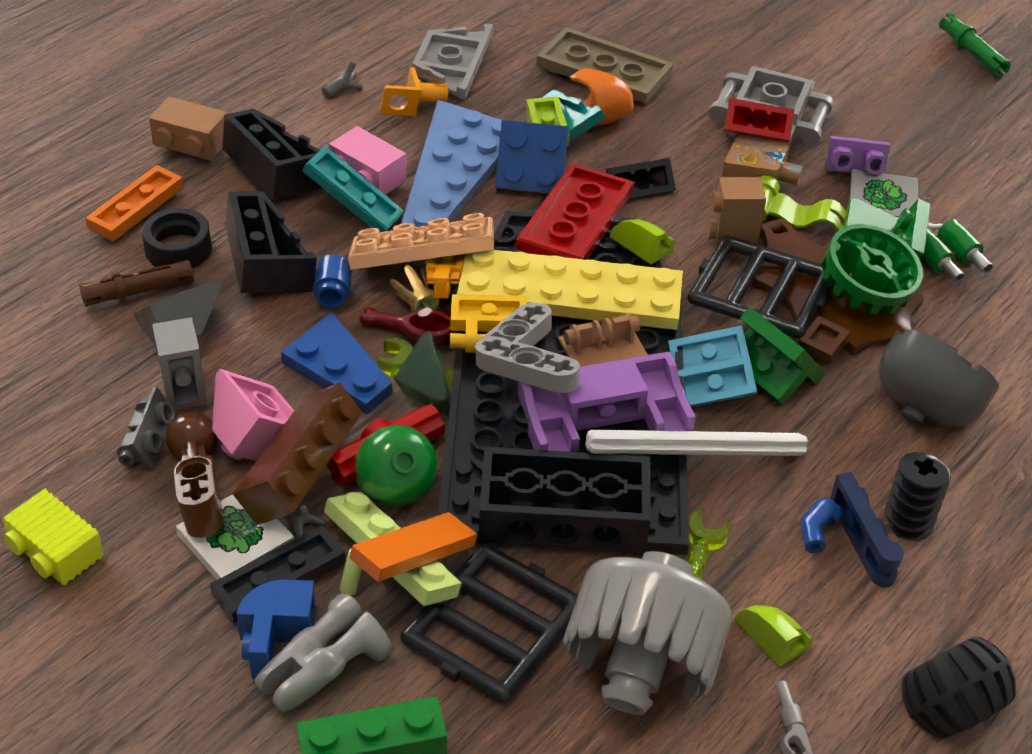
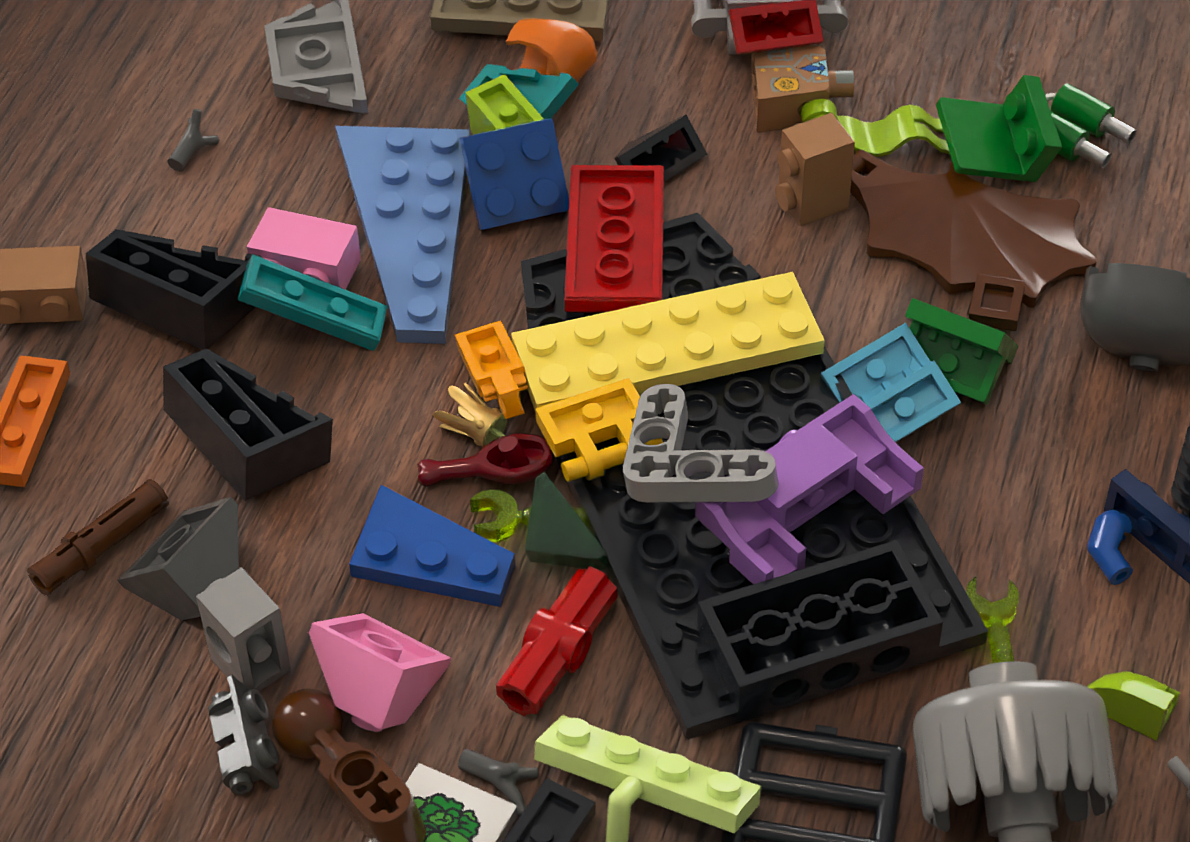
camera: 20 degrees left, 5 degrees up
(176, 222) = (106, 426): black tyre -> none
(297, 454) = (469, 697): reddish brown brick -> none
(332, 281) = (359, 441): blue brick -> none
(395, 466) = (595, 665): green cylinder -> none
(412, 546) = (688, 765): orange tile -> none
(414, 93) = (300, 128): light orange bracket -> none
(421, 243) = (447, 346): light nougat tile -> none
(603, 343) = (758, 409): medium nougat hinge -> none
(643, 239) = (720, 244): lime brick -> none
(695, 443) = (930, 499): white axle -> none
(758, 254) = (911, 213): black bar -> none
(857, 154) = (907, 32): medium lavender hips -> none
(871, 268) = (1014, 190): green gear -> none
(884, 191) = (959, 72): tile -> none

